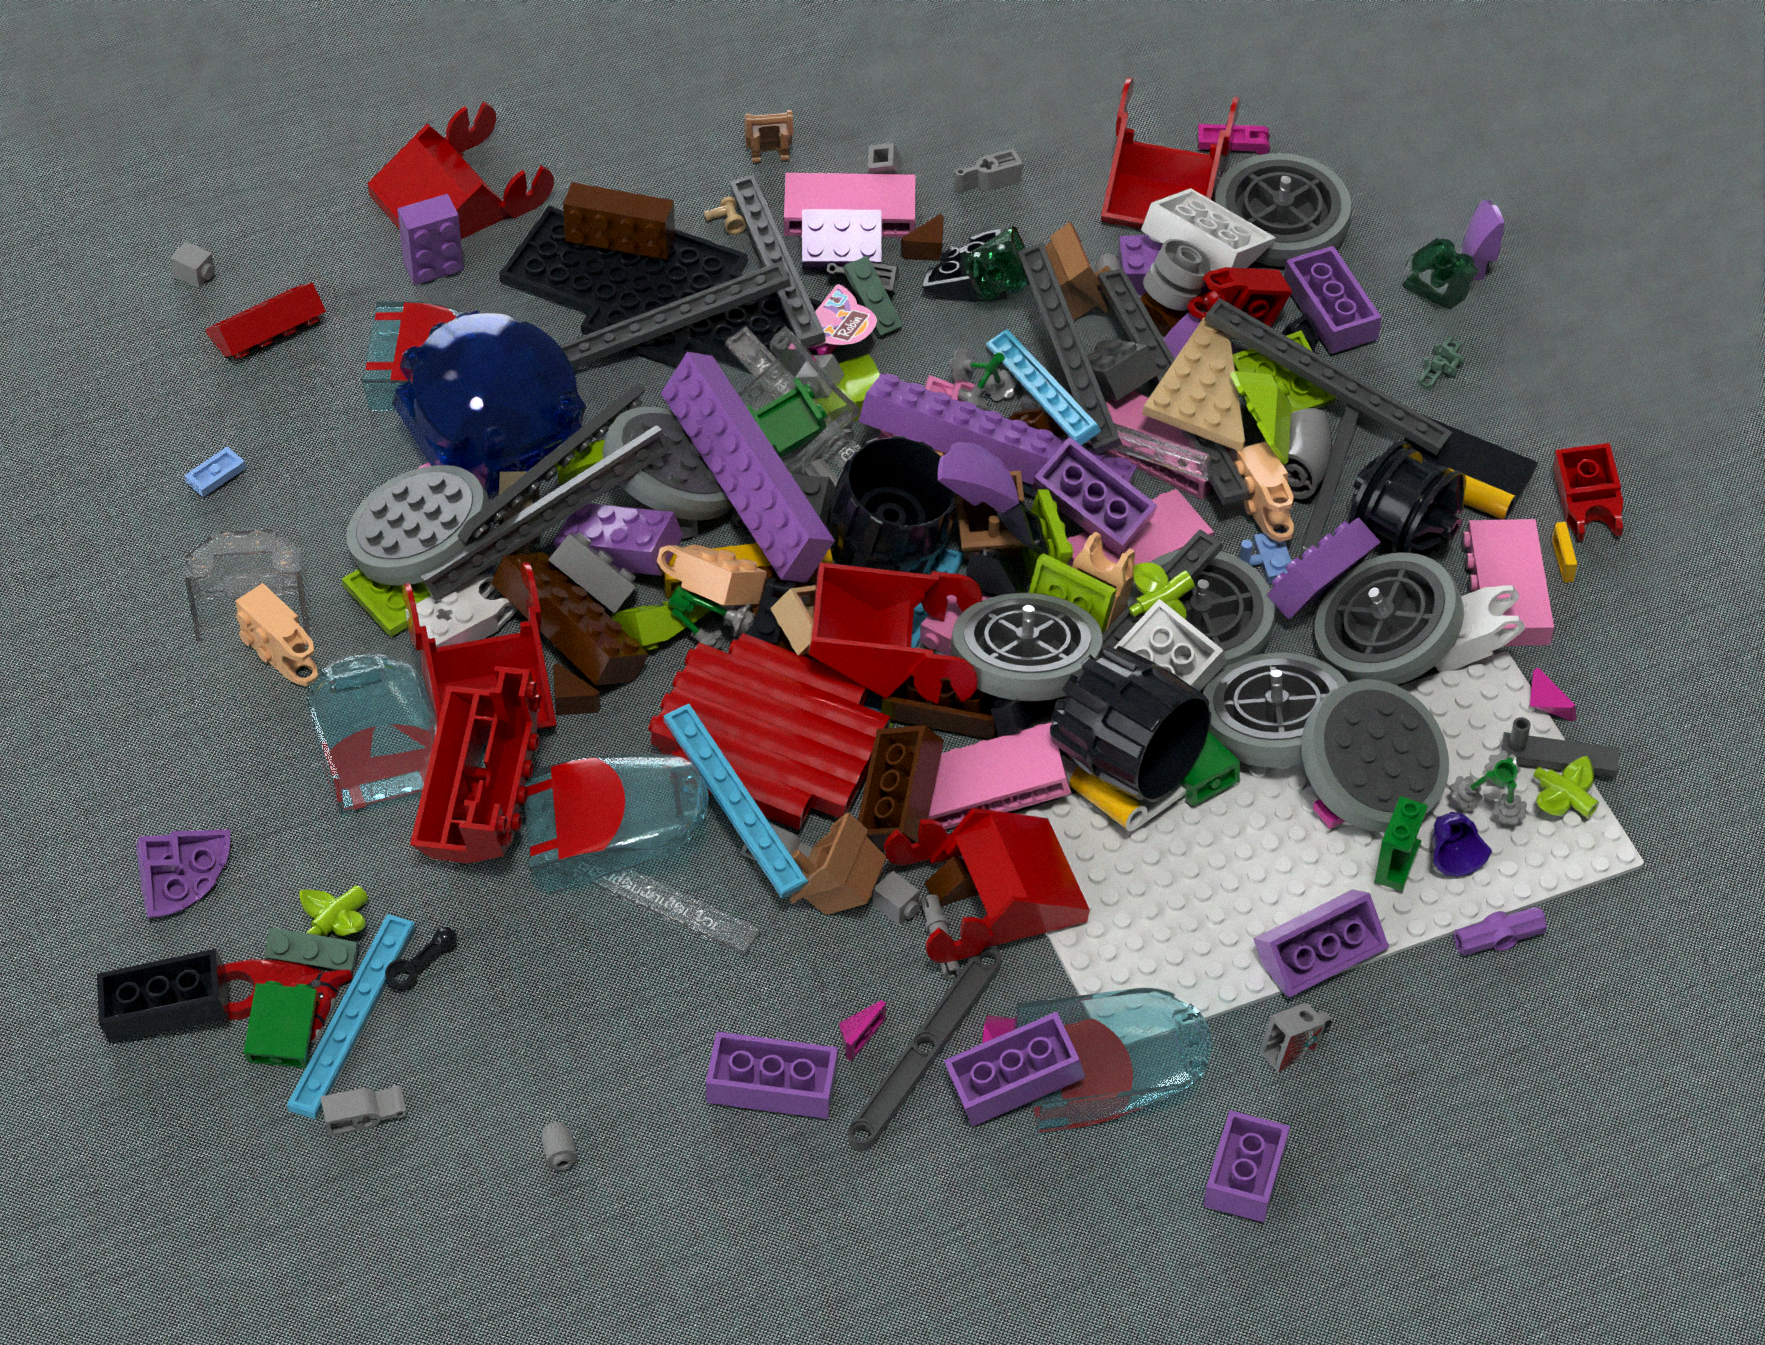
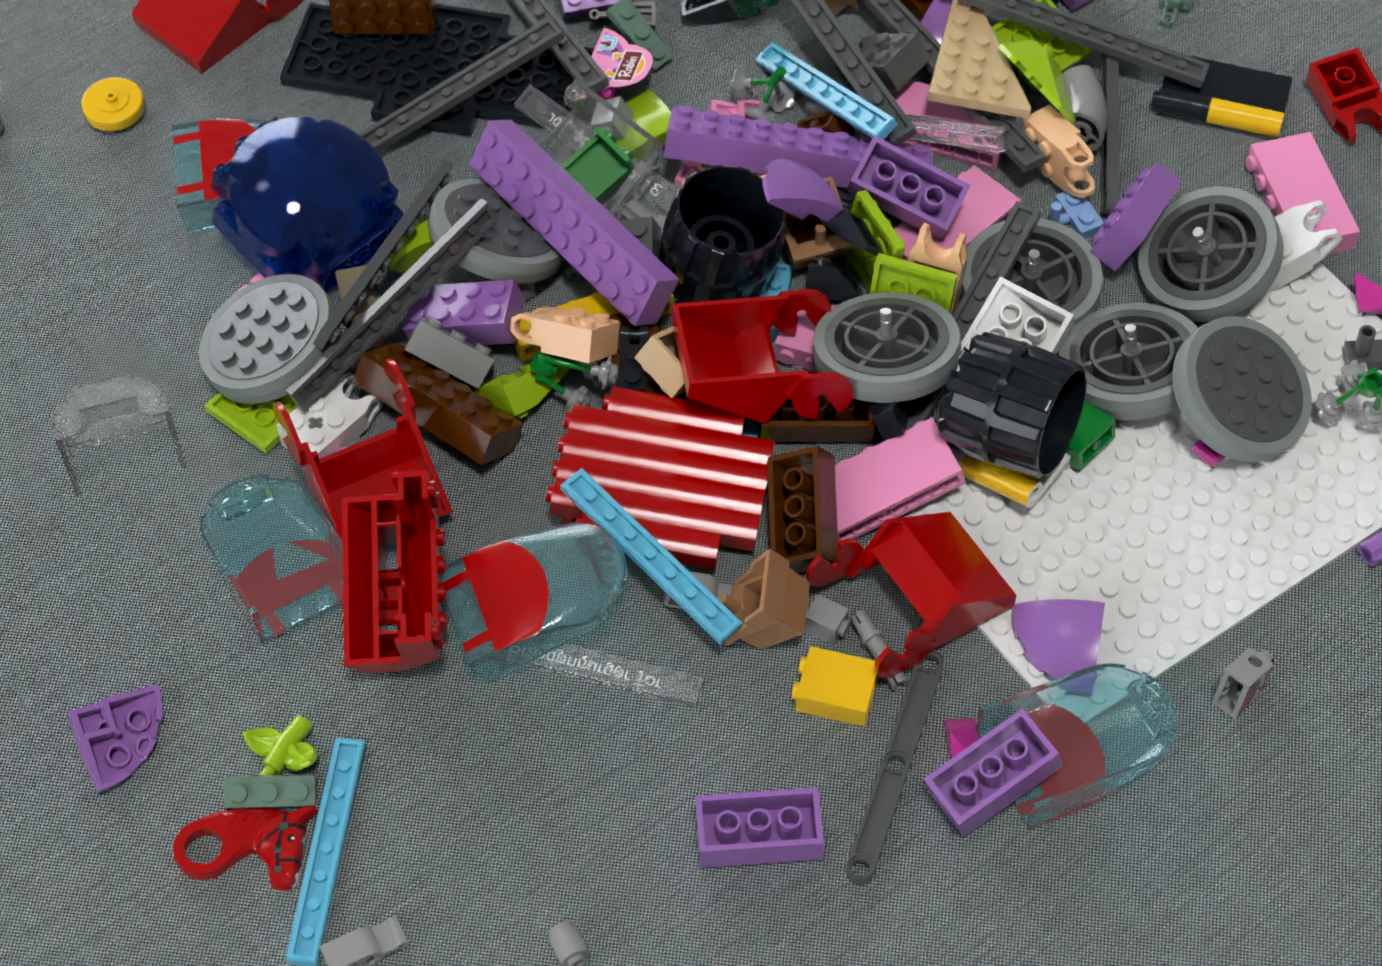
camera: 10 degrees left, 5 degrees up
(162, 995) = (133, 873): black brick -> none
(215, 471) = (53, 322): light blue plate -> none
(267, 320) = (66, 163): red slope -> none
(275, 634) = (154, 474): light nougat brick -> none
(281, 1024) = (260, 877): green panel -> none
(330, 269) = (113, 104): none -> yellow wheel
(430, 239) = (207, 55): medium lavender brick -> none
(443, 940) = (398, 753): black piece -> none
(573, 693) = (458, 476): reddish brown slope -> none
(861, 1027) = (827, 758): dark pink slope -> none
(886, 961) = (835, 686): none -> yellow brick
(951, 882) = (875, 592): reddish brown slope -> none
(1123, 953) = (1059, 633): none -> medium lavender brick
(1154, 584) = (991, 263): lime plant -> none
(1246, 1166) = (1240, 824): medium lavender brick -> none
(1322, 942) = (1242, 582): medium lavender slope -> none
(1400, 844) = (1289, 469): green panel -> none
(1409, 500) = (1196, 137): black wheel -> none
(1458, 845) = (1339, 459): dark purple helmet -> none
(1564, 552) = (1343, 157): yellow tile -> none

